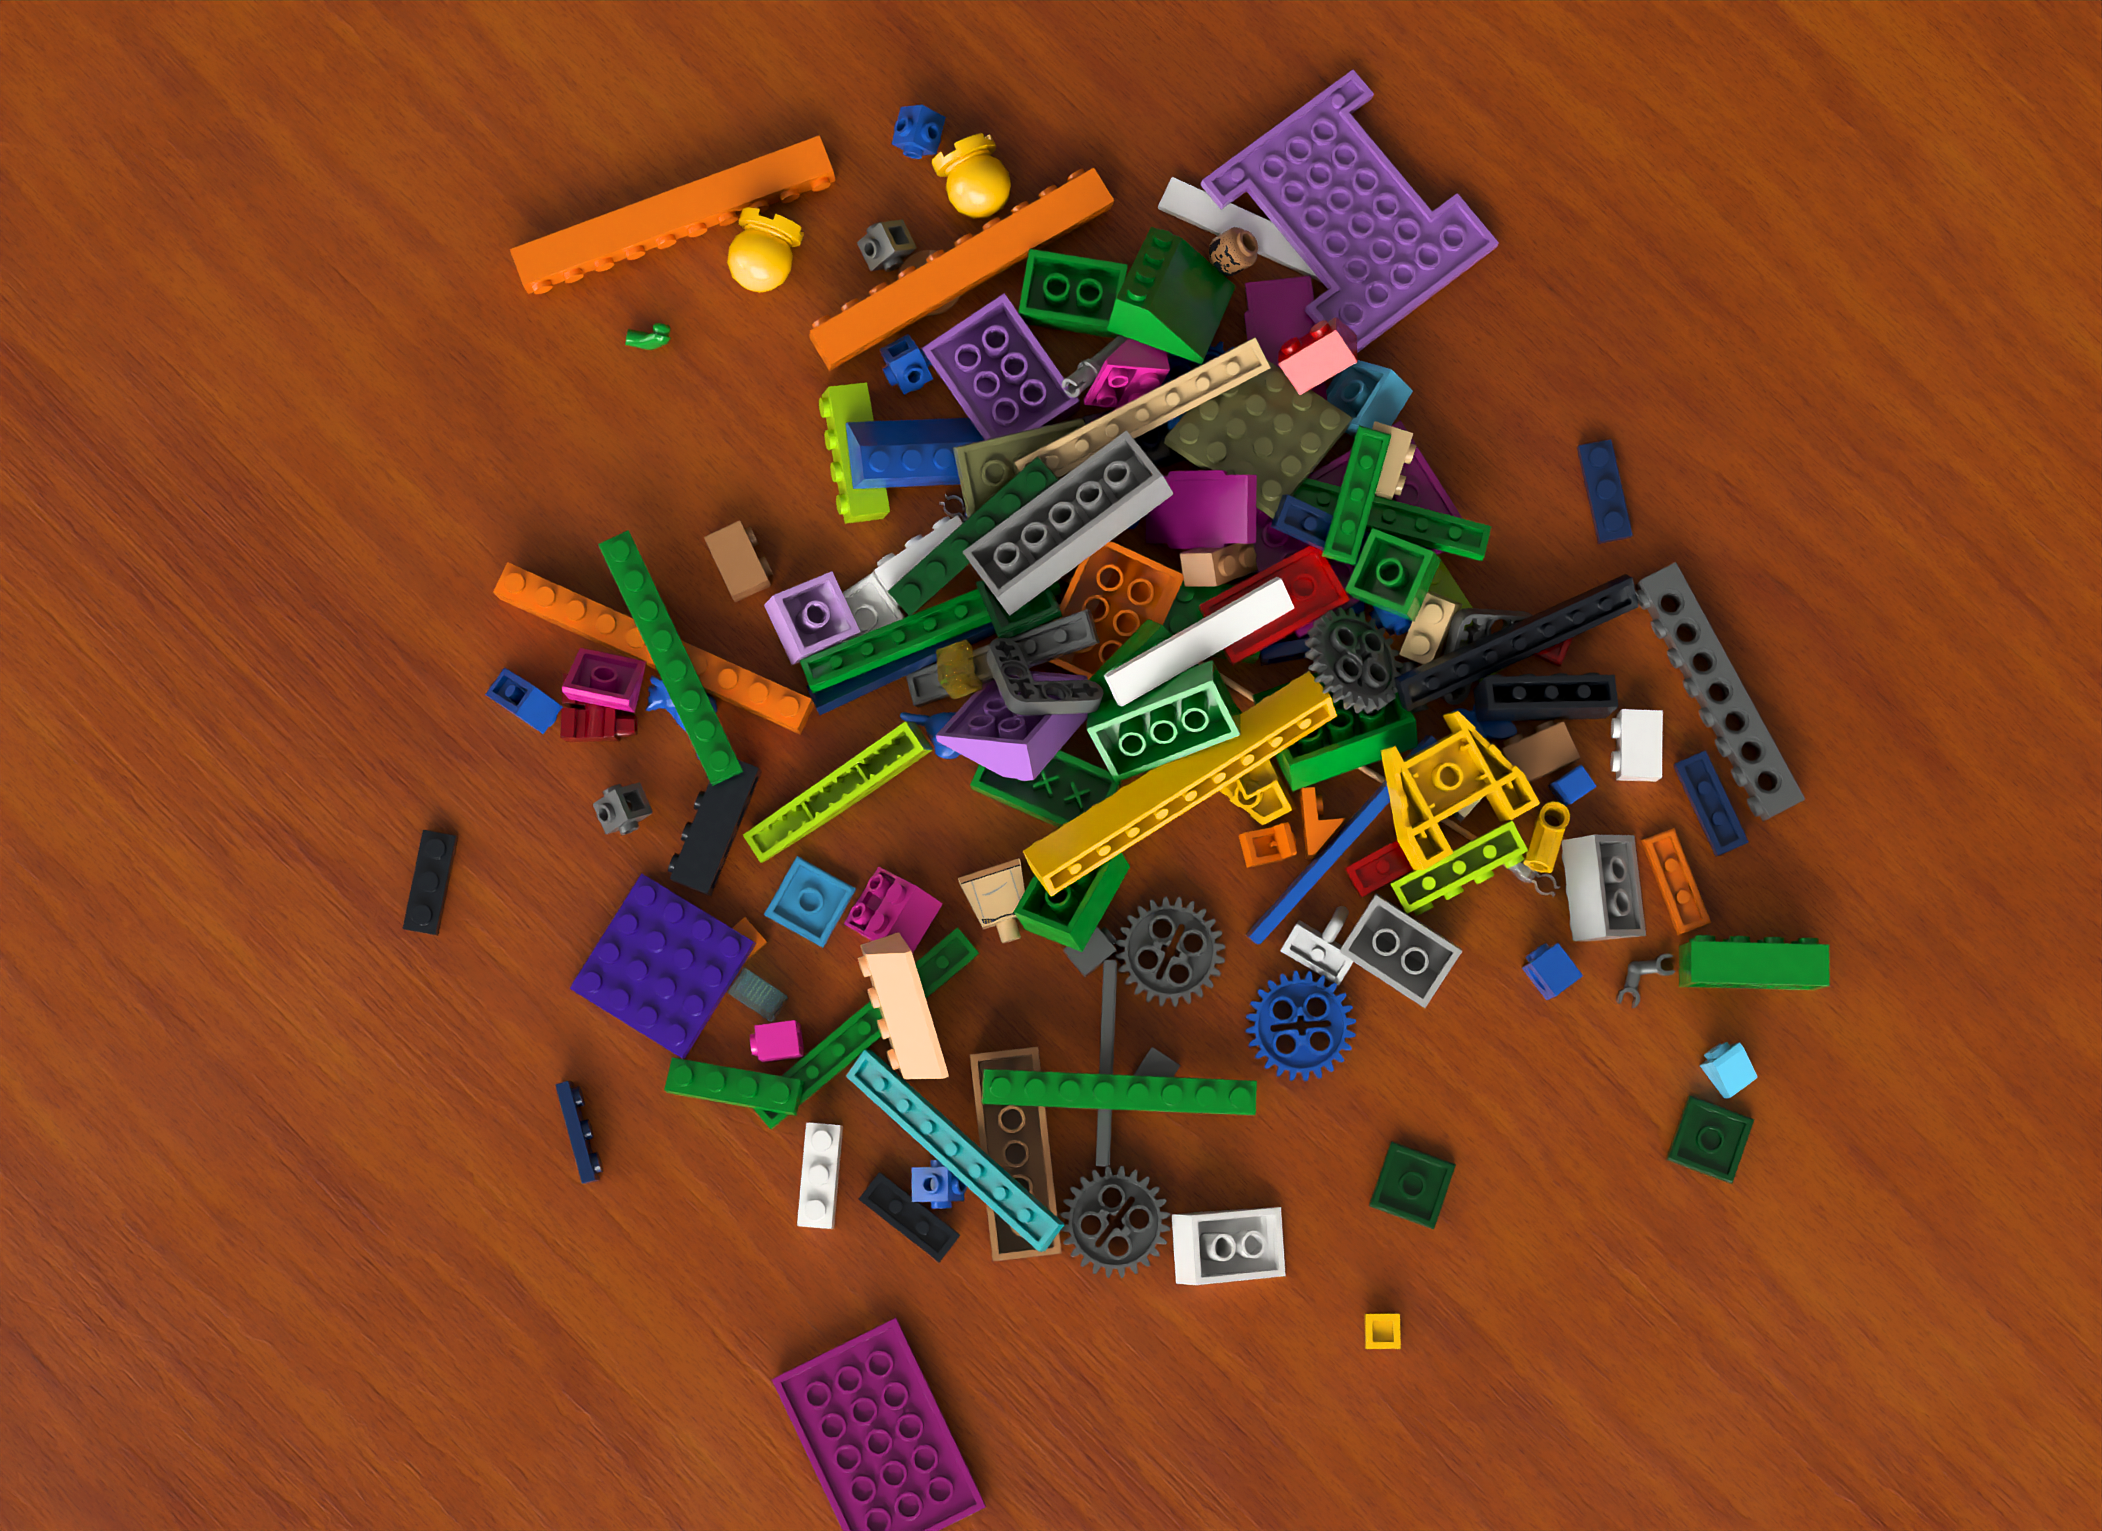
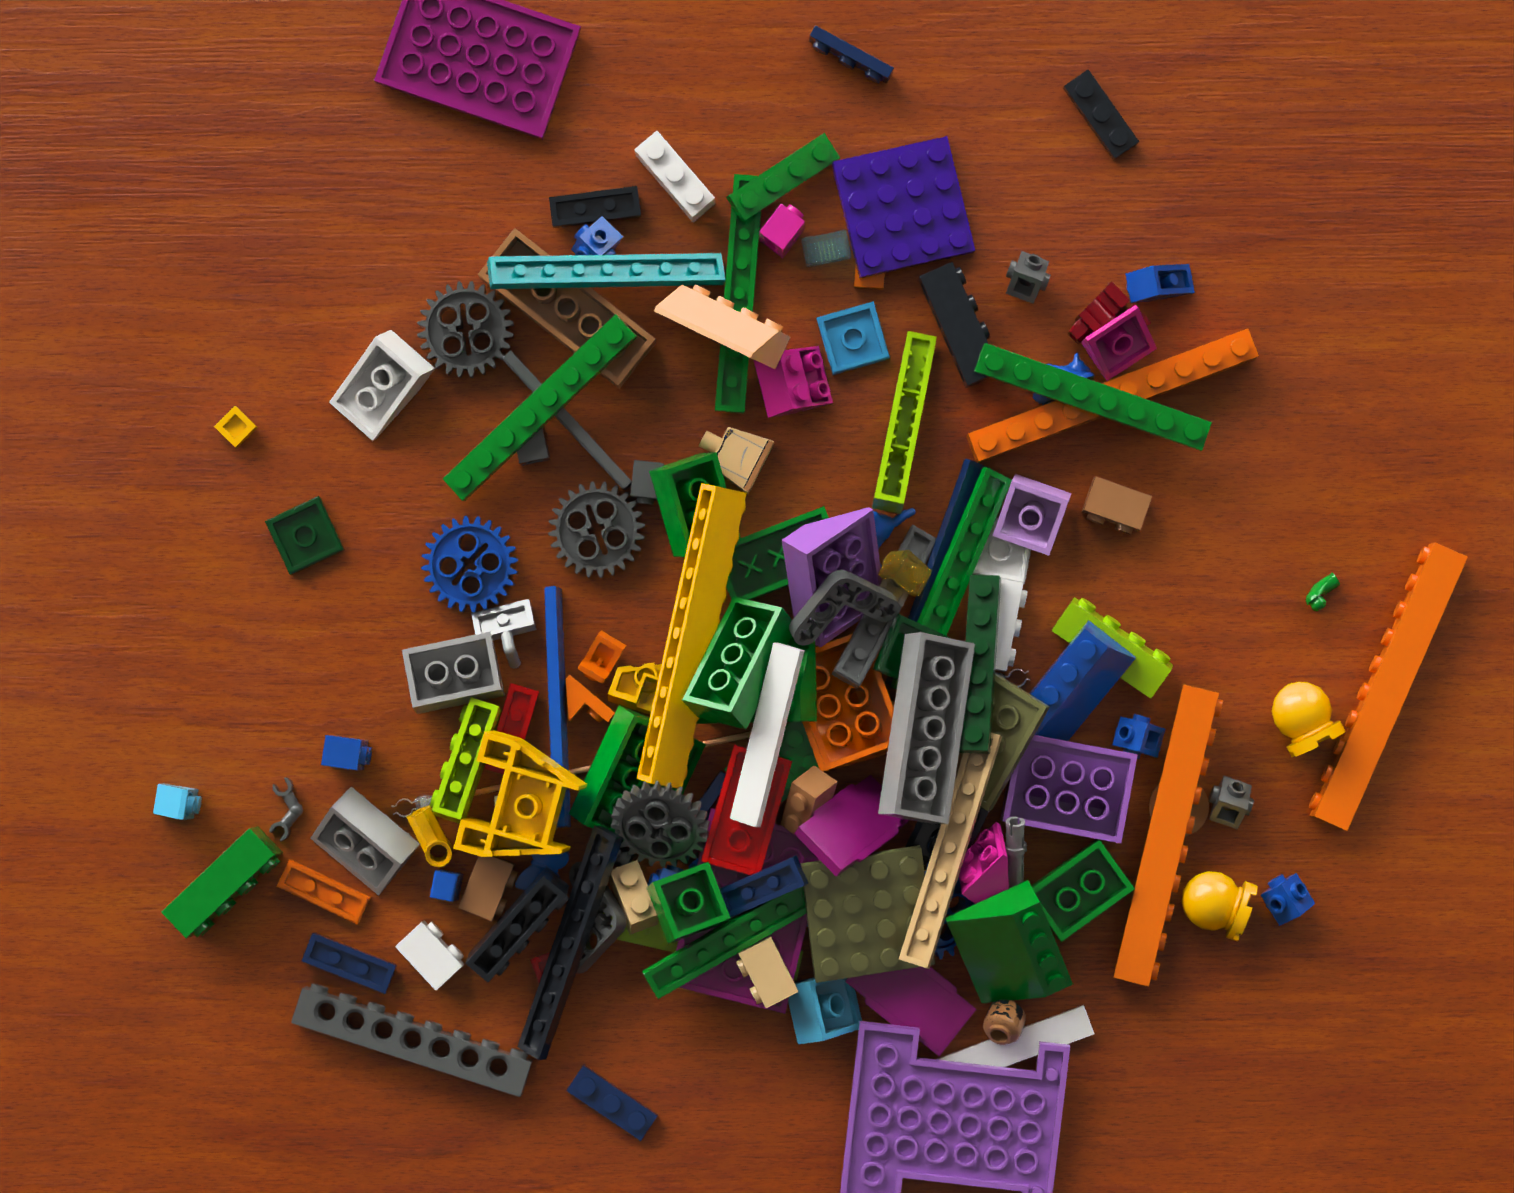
camera: 135 degrees right, 5 degrees up
(1319, 354) = (876, 999): slope -> none
(1356, 495) = (761, 930): green tile -> none
(1710, 1139) = (147, 747): dark green tile -> none

